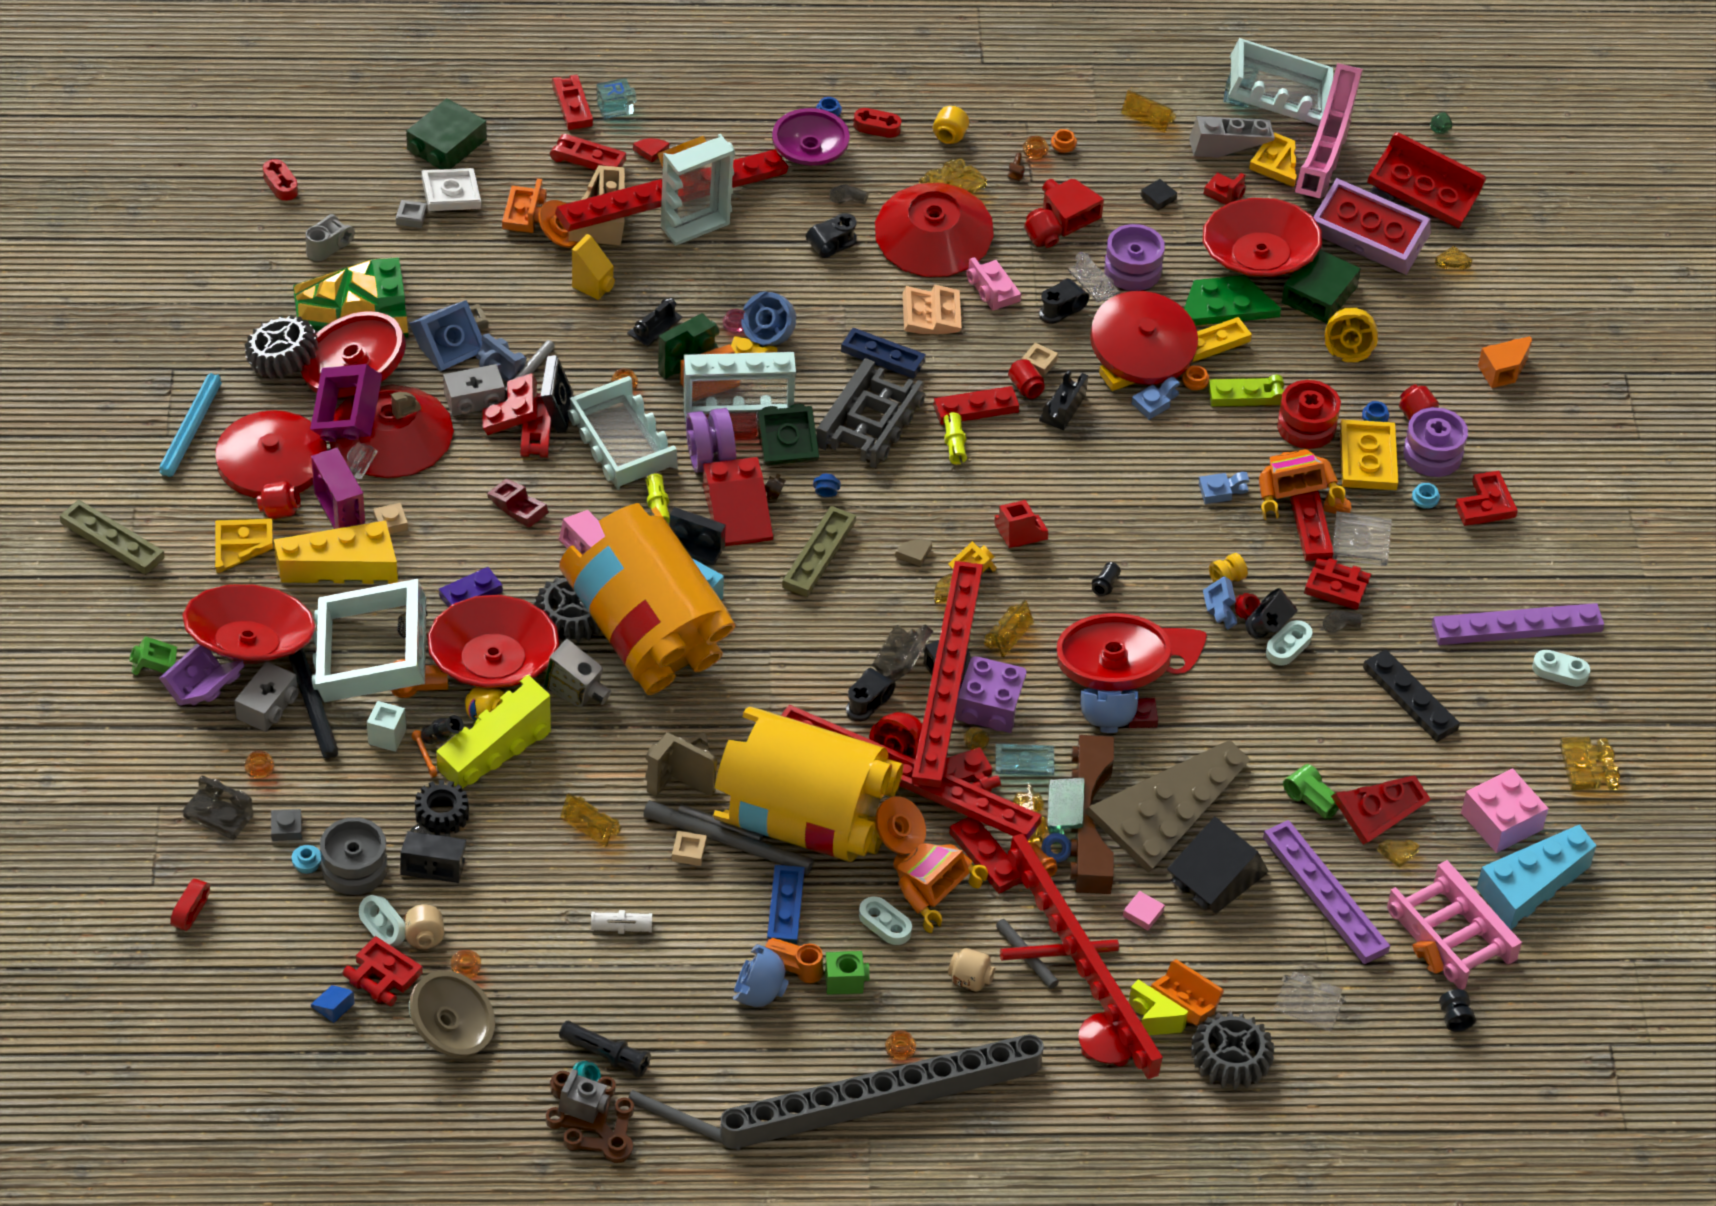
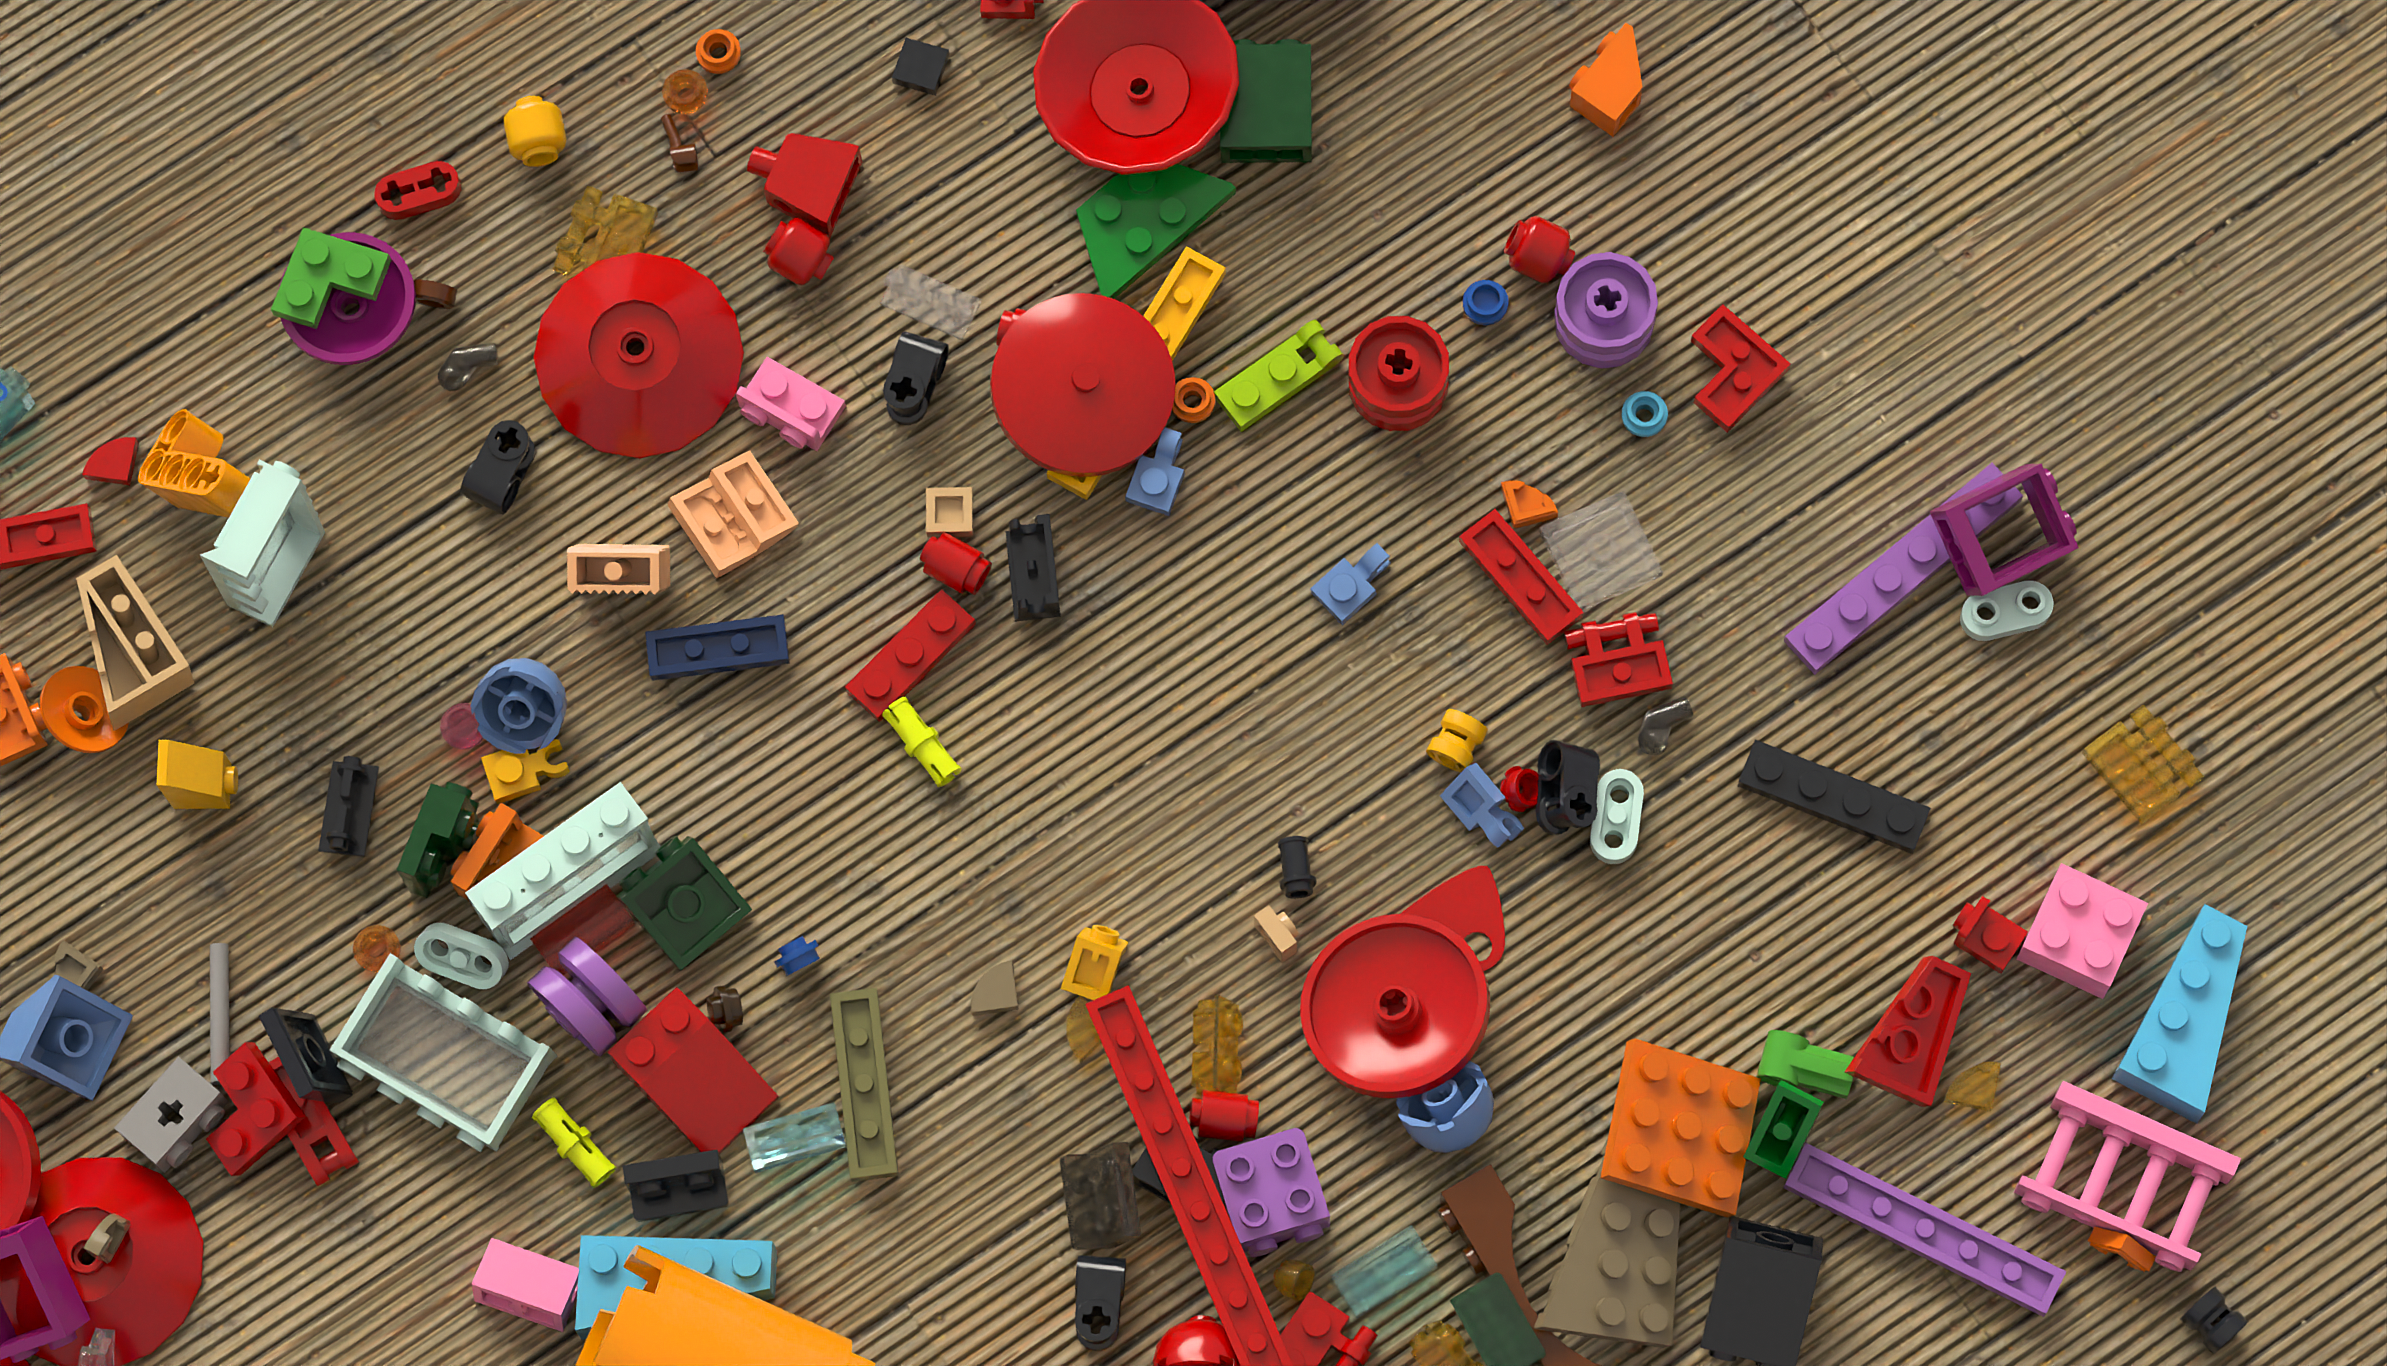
camera: 25 degrees left, 25 degrees up
(497, 352) = (166, 1033): sand blue hips -> none
(515, 502) = (373, 1277): dark red slope -> none
(649, 195) = (190, 586): red plate -> none
(664, 403) = (463, 958): none -> light aqua plate
(757, 550) = (794, 1137): none -> clear light blue plate
(808, 115) = (324, 264): none -> bright green plate
(830, 104) = (324, 200): blue plate -> none
(852, 403) = (740, 782): dark grey fence -> none
(853, 160) = (435, 294): none -> reddish brown tile
(859, 295) = (618, 568): none -> light nougat brick
(990, 648) = (1224, 1115): none -> red brick
(1019, 524) = (1119, 851): red brick -> none
(1075, 597) = (1277, 932): none -> tan plate
(1134, 257) = (967, 204): medium lavender wheel -> none
(1146, 714) = (1497, 1070): dark red plate -> none
(1225, 775) = (1680, 1128): none -> orange plate
(1282, 798) = (1783, 1129): none -> green slope
(1296, 474) = (1450, 507): orange torso -> none
(1351, 334) = (1369, 178): yellow cylinder -> none
(1368, 454) = (1522, 389): yellow plate -> none
(1449, 788) = (1988, 935): none -> red bracket
(1555, 617) = (1963, 544): none -> magenta window

